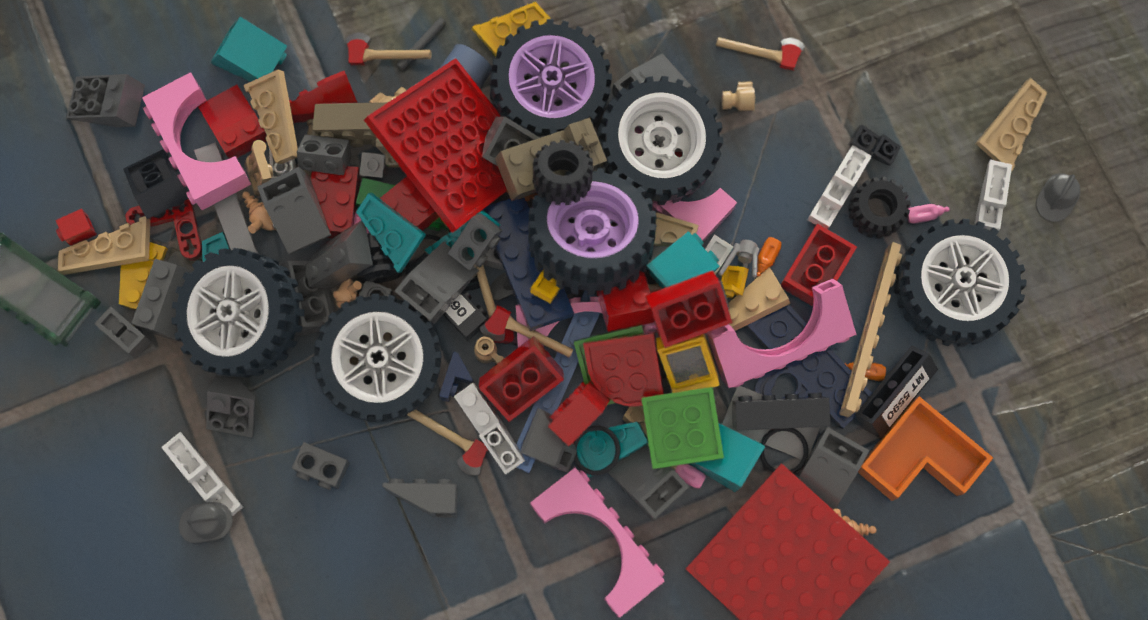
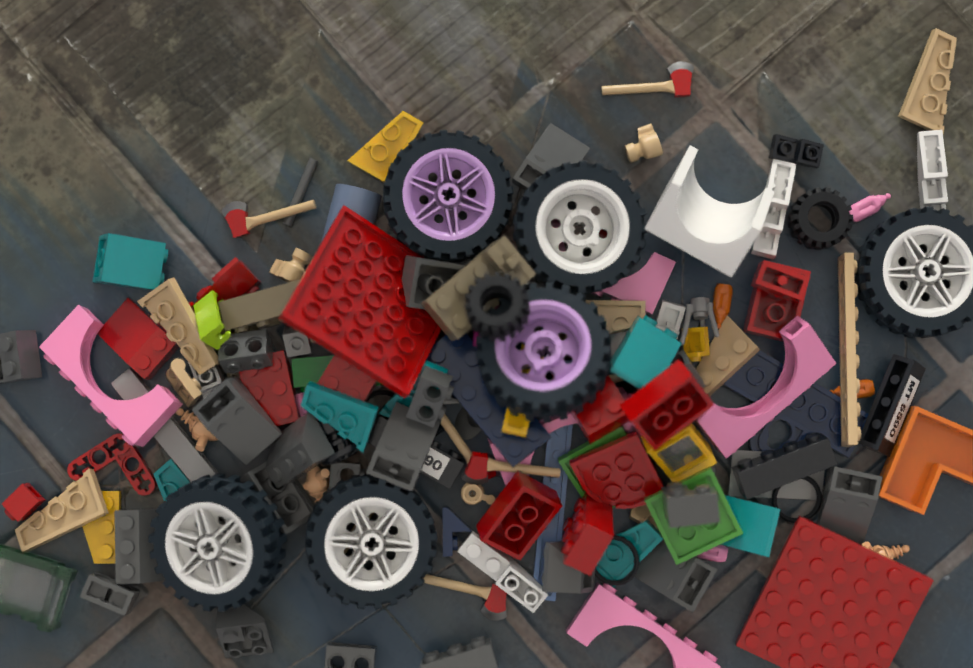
camera: 10 degrees left, 10 degrees up
(155, 184) = (84, 432): black slope -> none
(300, 118) = (209, 321): none -> lime hinge
(682, 407) = (690, 507): none -> dark grey brick
(759, 161) = (703, 226): none -> white piece
(826, 242) = (780, 281): none -> red brick

